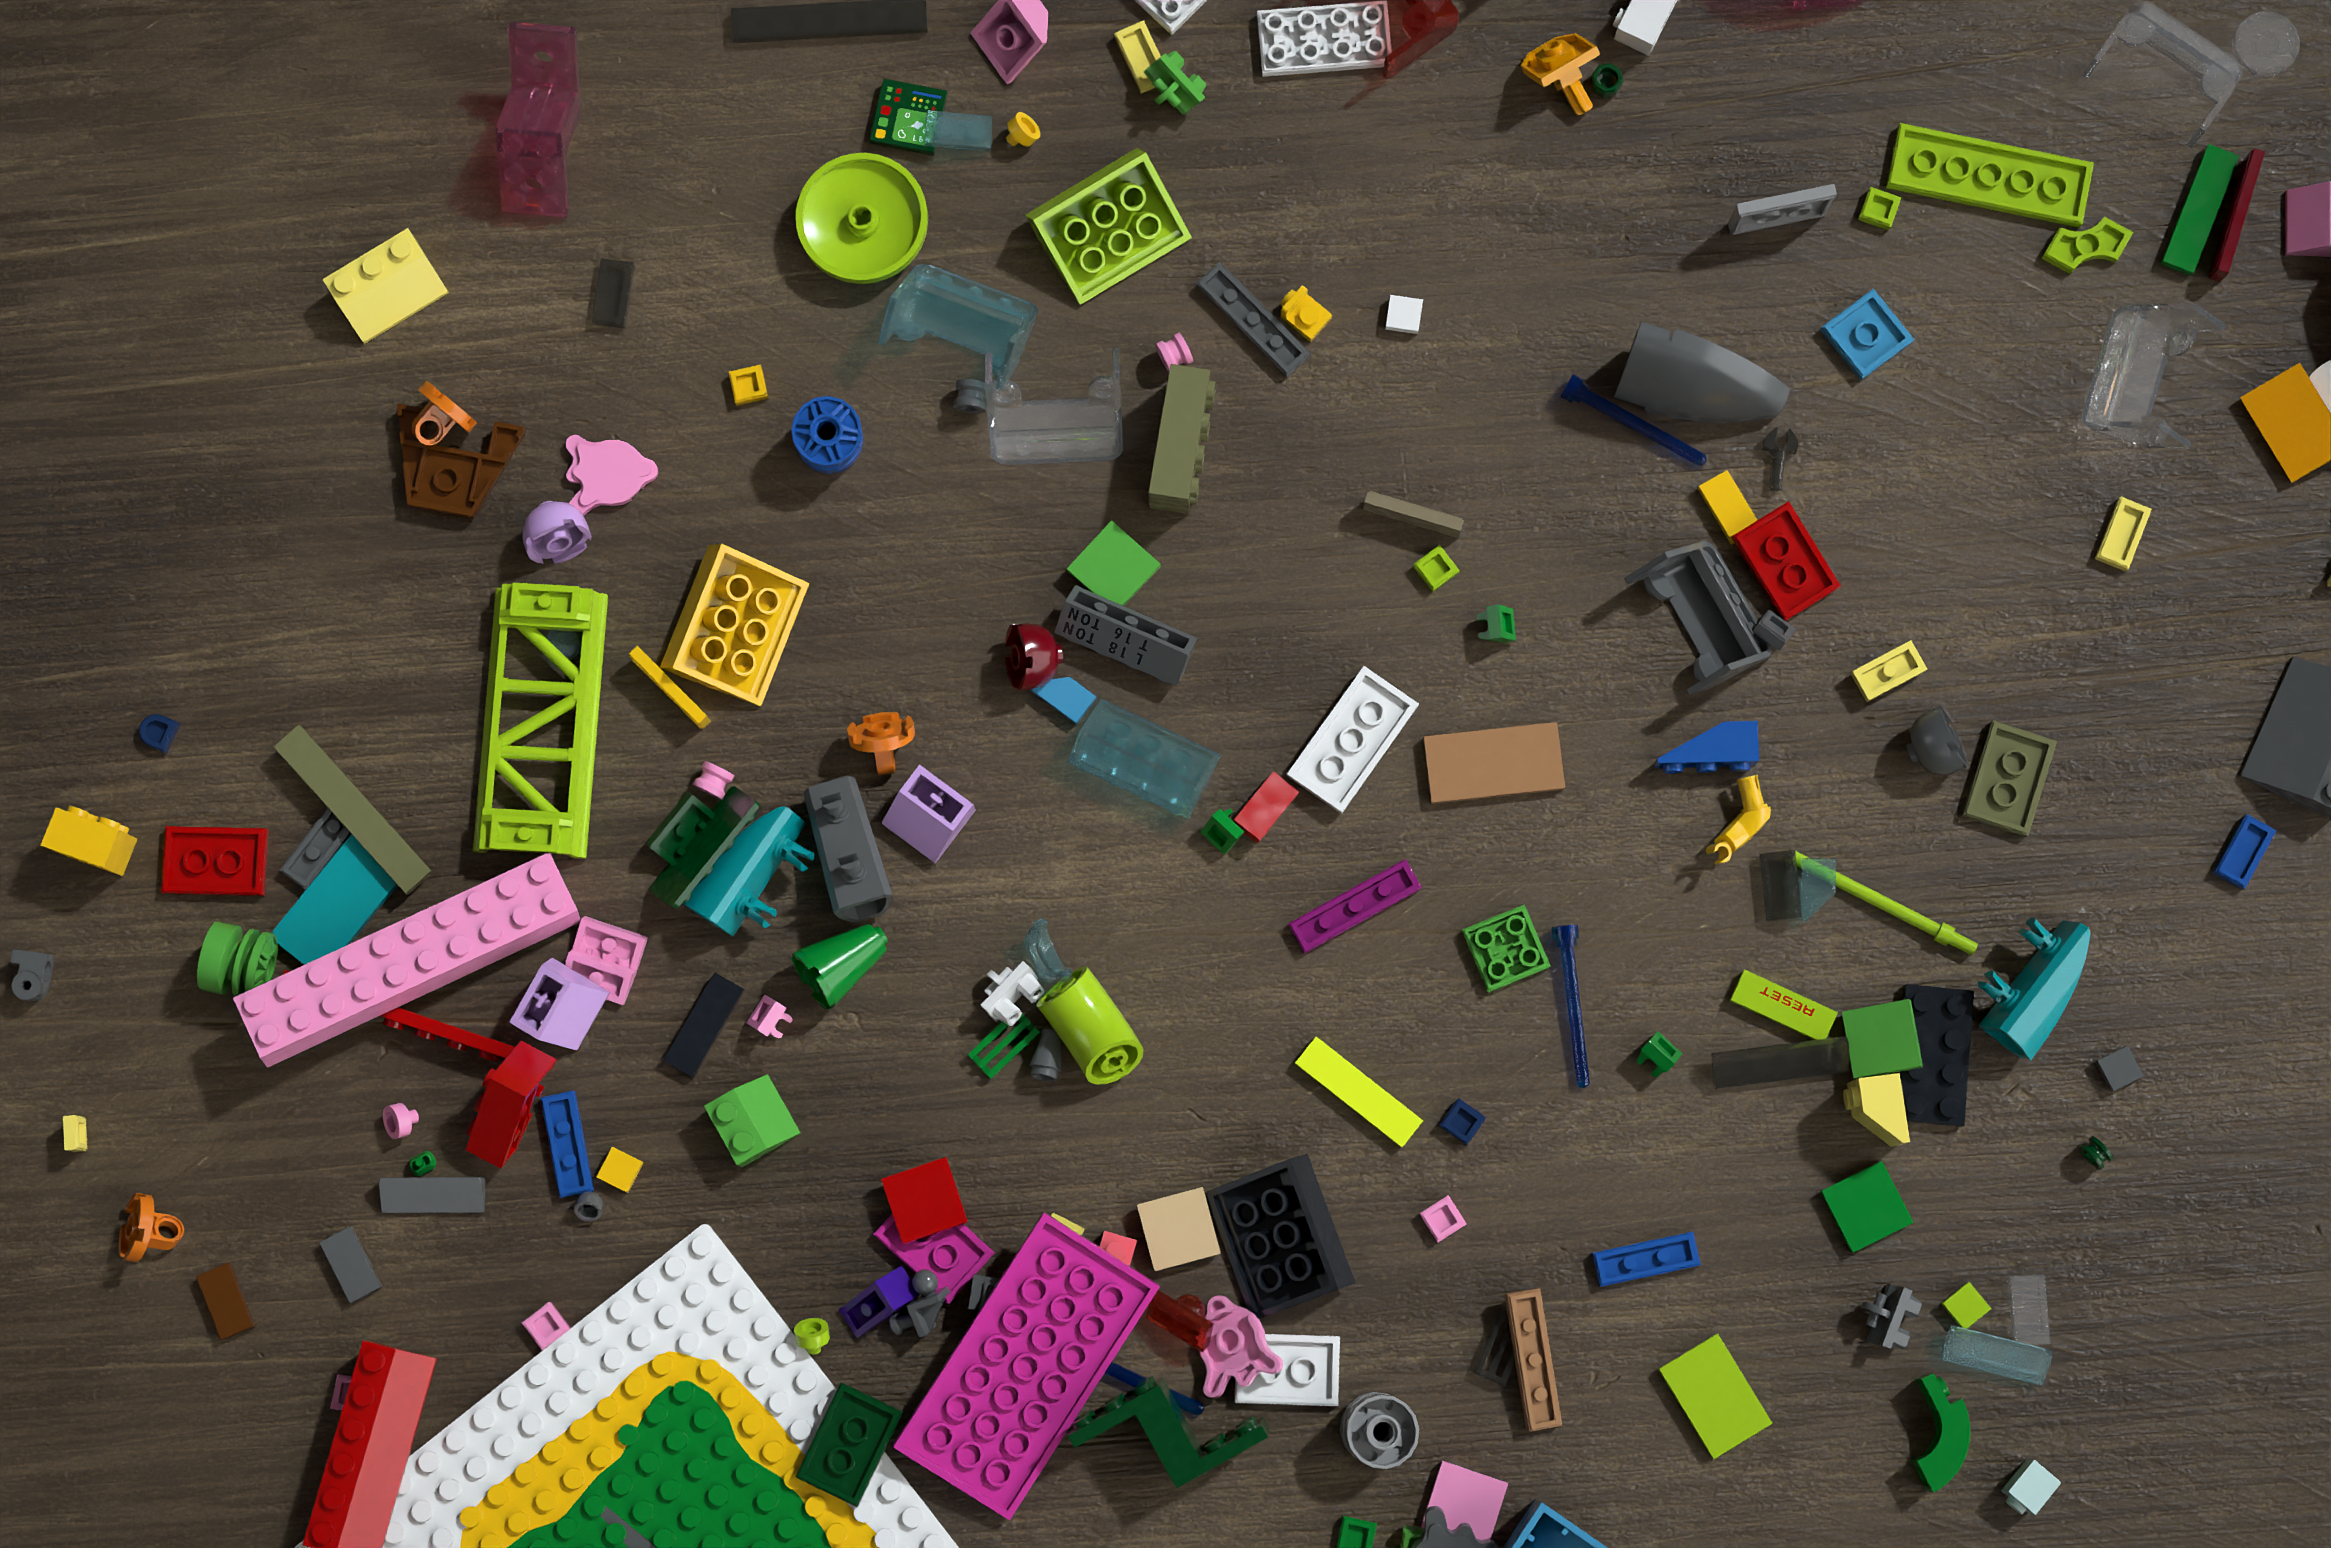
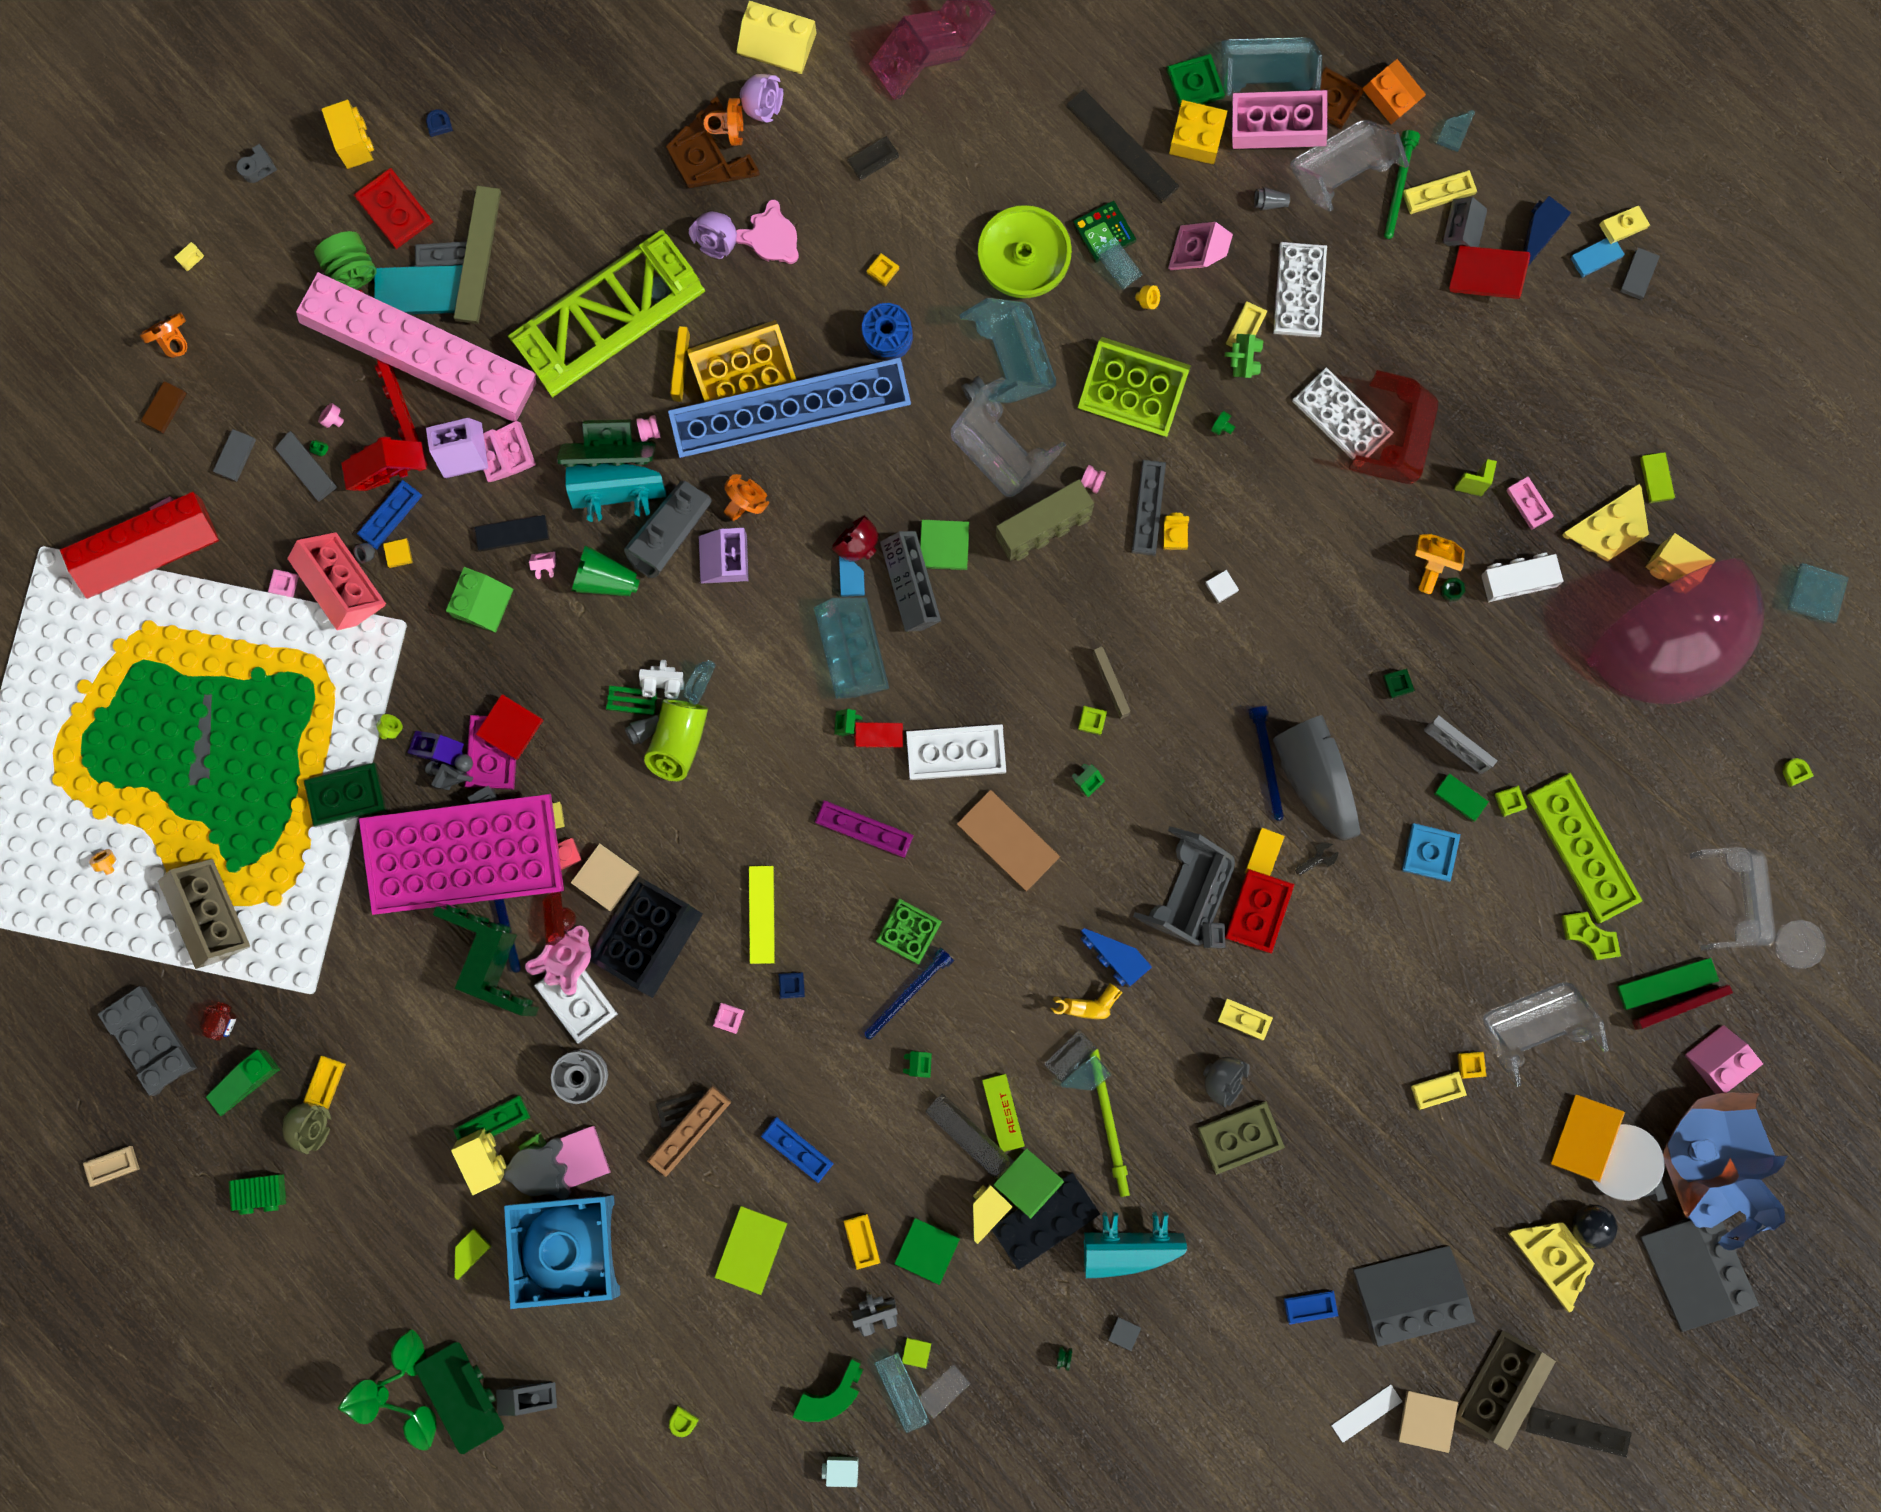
camera: 50 degrees right, 0 degrees up
(441, 356) = (761, 97): none -> lavender cylinder
(595, 1262) = (335, 580): none -> coral slope
(824, 608) = (789, 407): none -> medium blue brick
(1228, 167) = (1222, 423): none -> green tile
(1661, 219) = (1398, 683): none -> dark green plate
(1800, 1269) = (862, 1241): none -> yellow tile
(1834, 255) = (1461, 797): none -> green tile
(2124, 477) = (1472, 1065): none -> yellow tile

